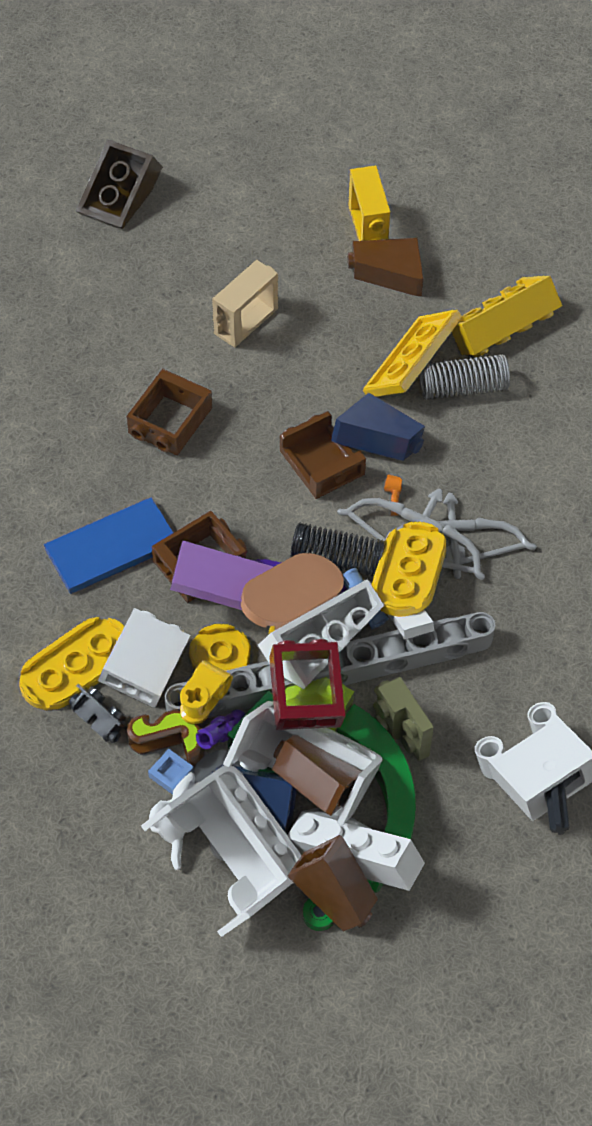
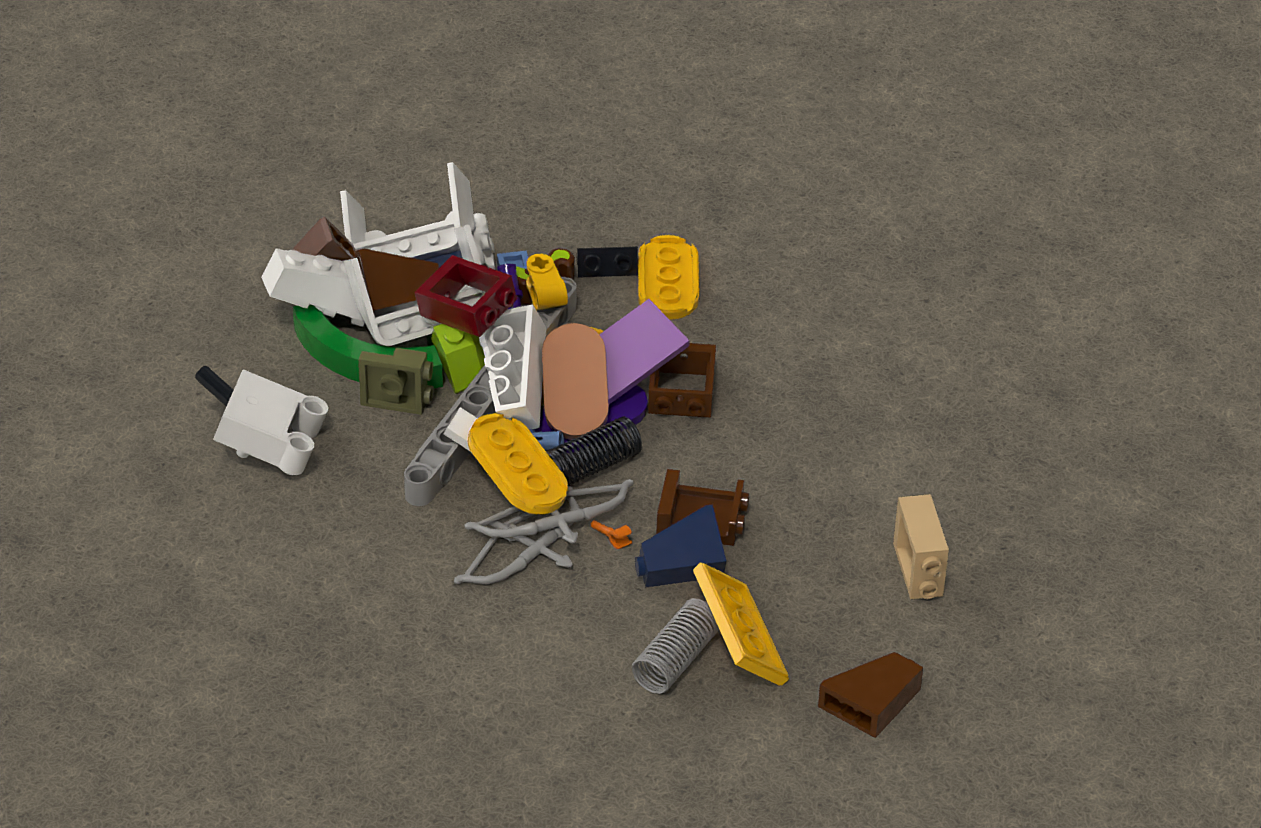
camera: 130 degrees right, 15 degrees down
(108, 545) = (756, 350): blue tile -> none
(119, 184) = (1186, 575): dark brown slope -> none
(144, 657) = (618, 289): white brick -> none
(179, 390) = (858, 467): reddish brown window -> none
(368, 204) = (945, 723): yellow window -> none
(503, 315) = (718, 728): yellow wedge -> none

